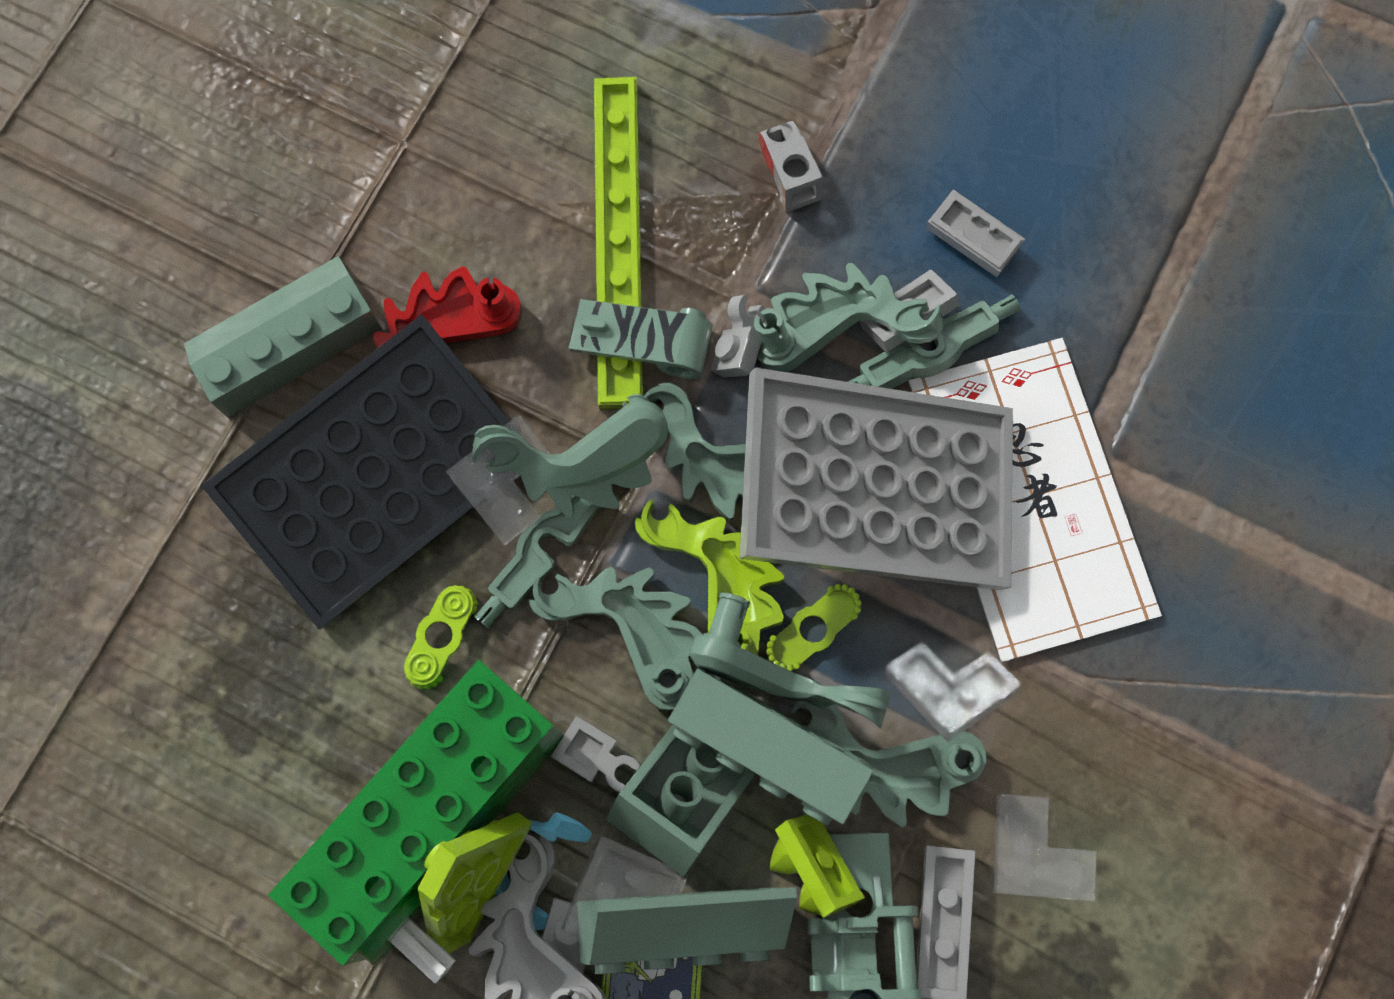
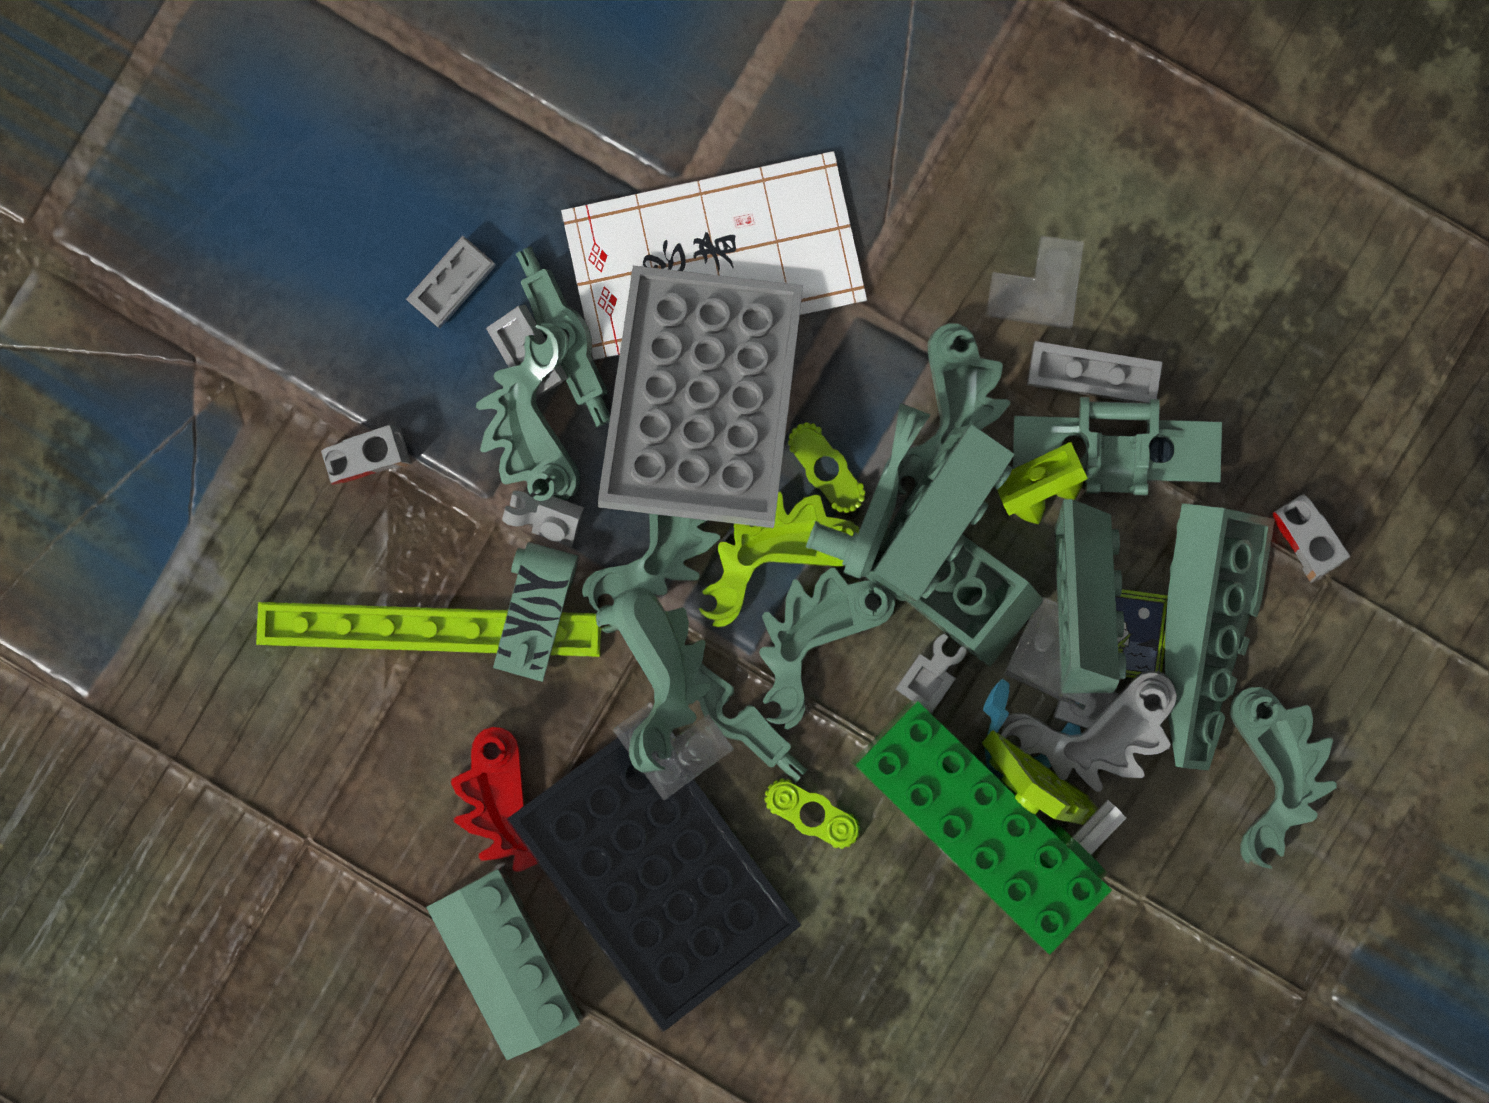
camera: 85 degrees left, 10 degrees up
(950, 699) = (901, 350): clear plate -> none

